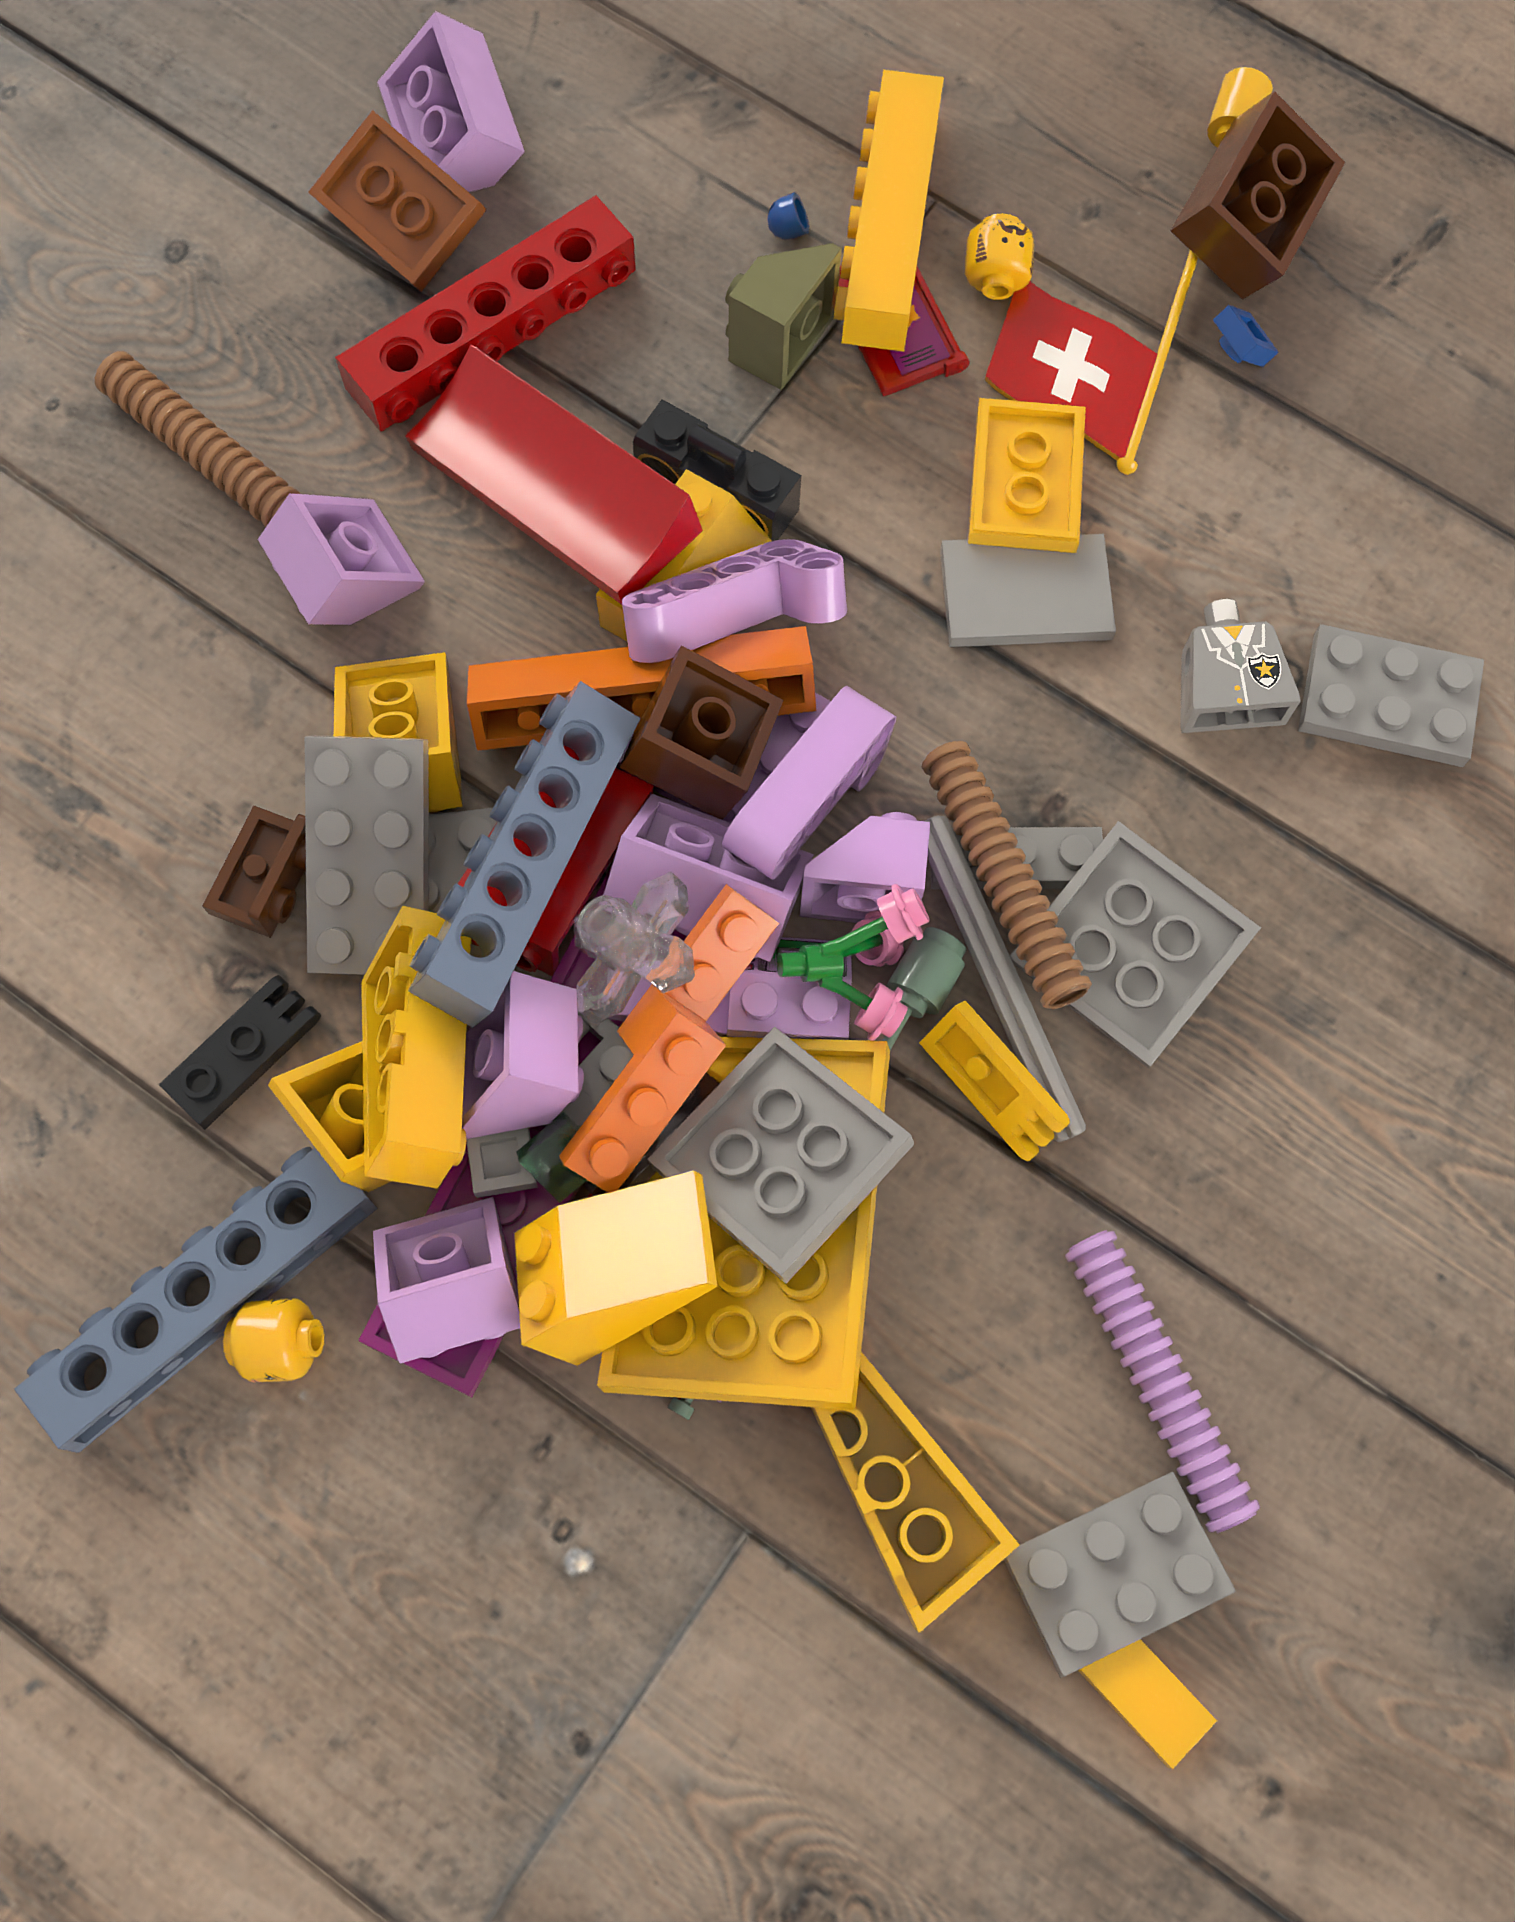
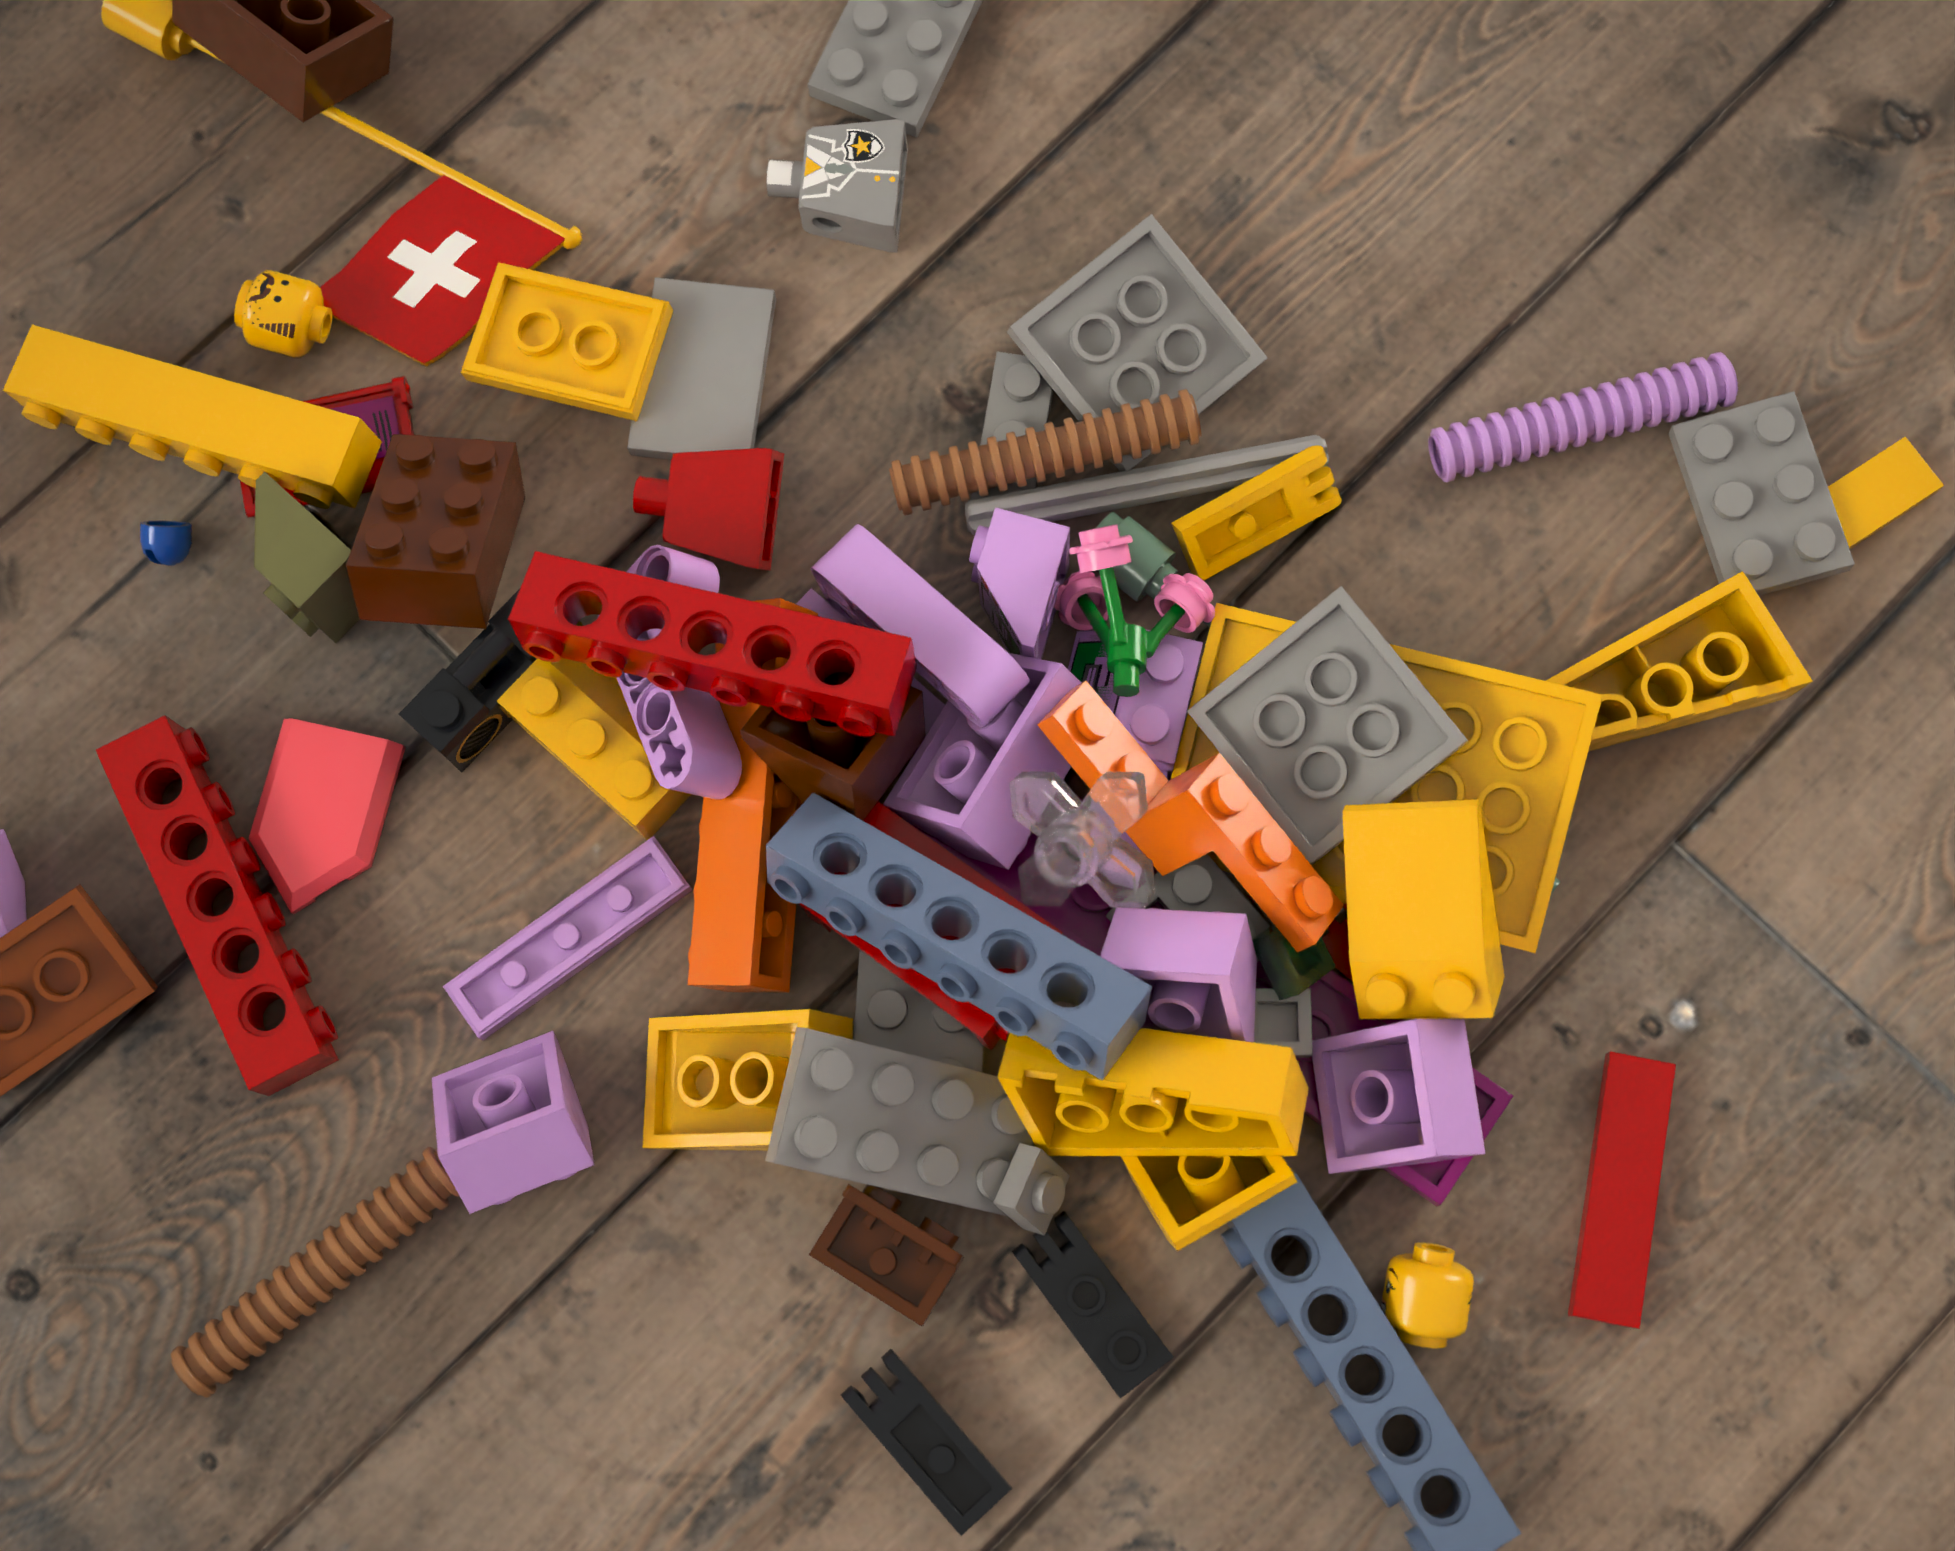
camera: 70 degrees left, 5 degrees up
(106, 930) = (929, 1444): none -> black hinge
(330, 977) = (1032, 1189): none -> light grey plate
(398, 1517) = (1622, 1190): none -> red tile
(504, 577) = (567, 938): none -> lavender tile
(555, 477) = (470, 855): red arch -> none
(592, 374) = (322, 807): none -> coral tile
(727, 739) = (564, 591): none -> red brick
(826, 396) = (437, 531): none -> reddish brown brick
(900, 618) = (718, 503): none -> red torso
(1244, 337) = (446, 80): blue plate -> none

